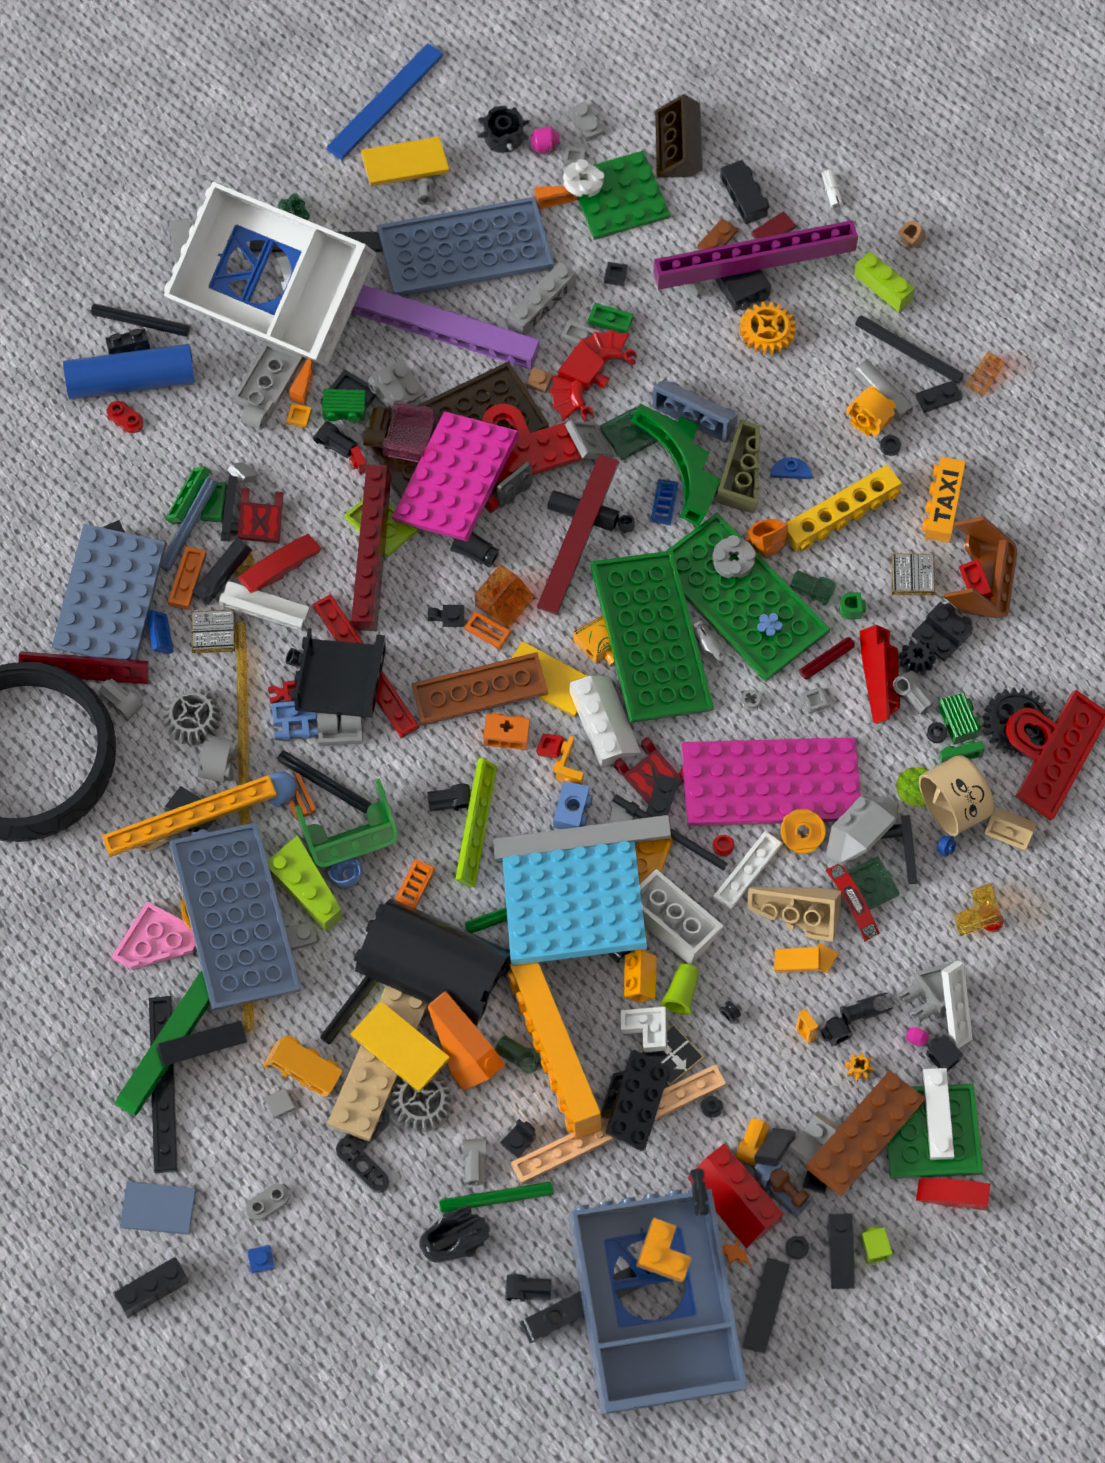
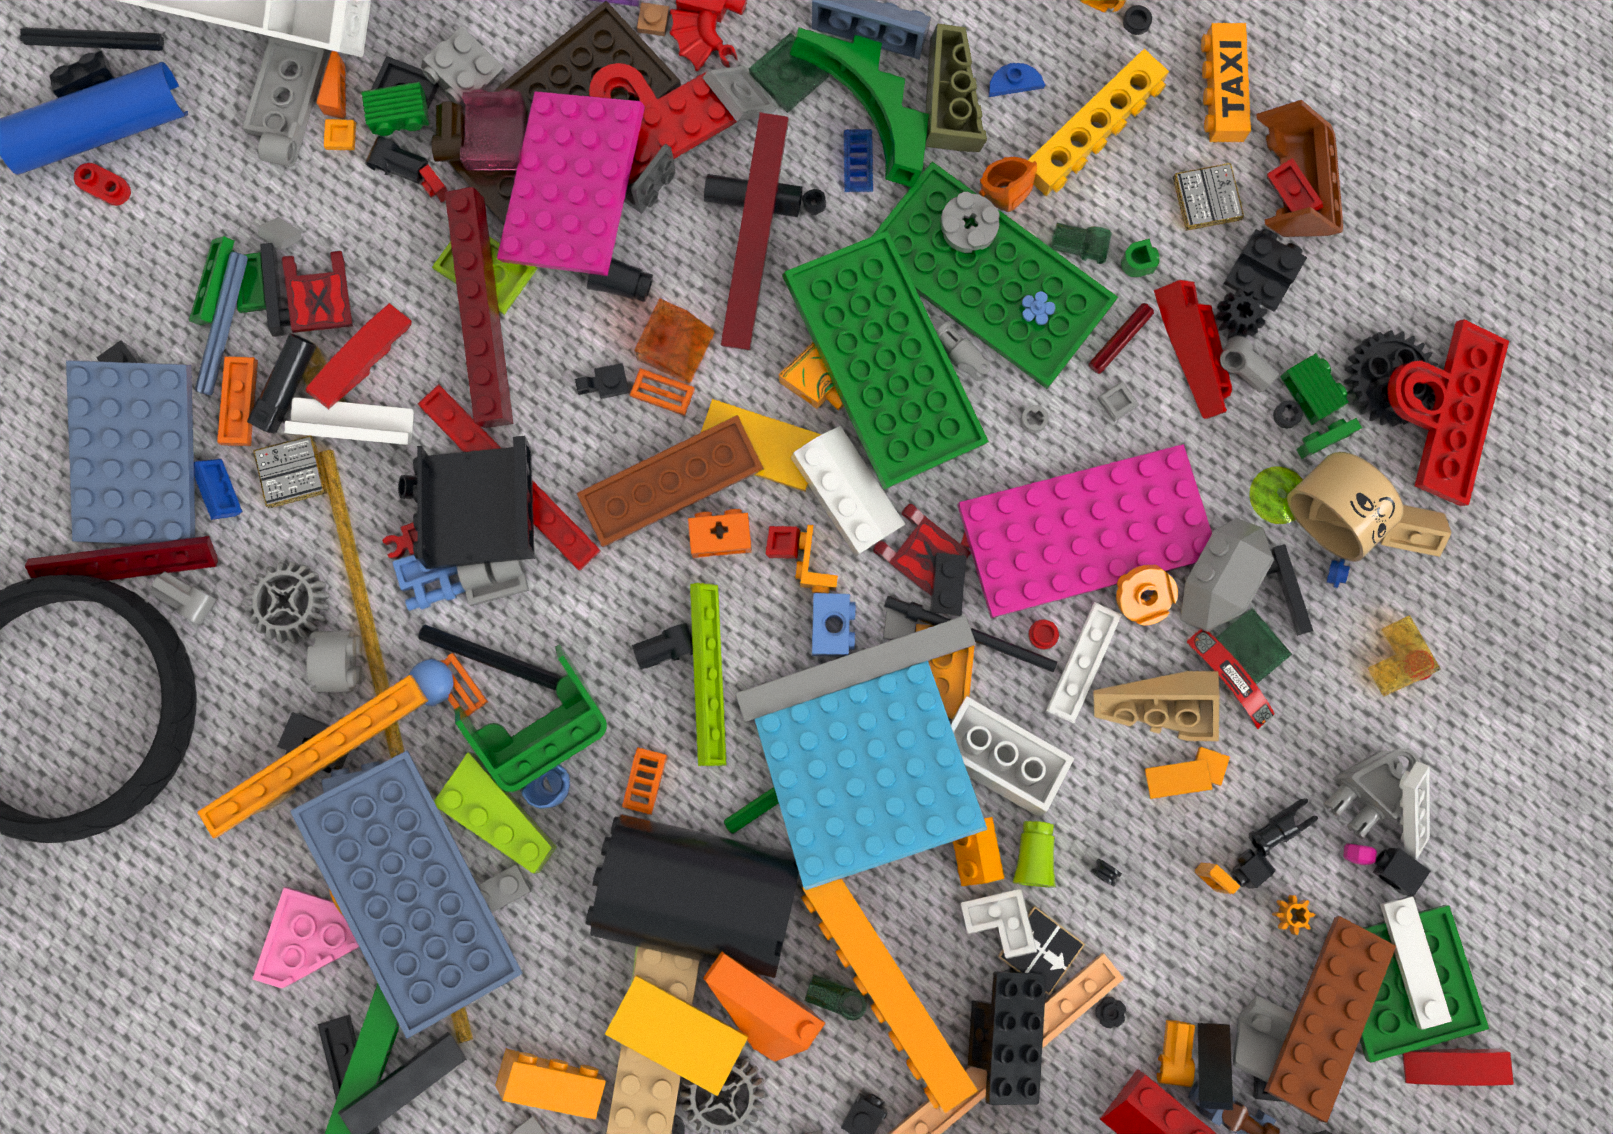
camera: 15 degrees left, 15 degrees up
(347, 1010) = (591, 987): black axle -> none
(492, 504) = (629, 210): red tile -> none

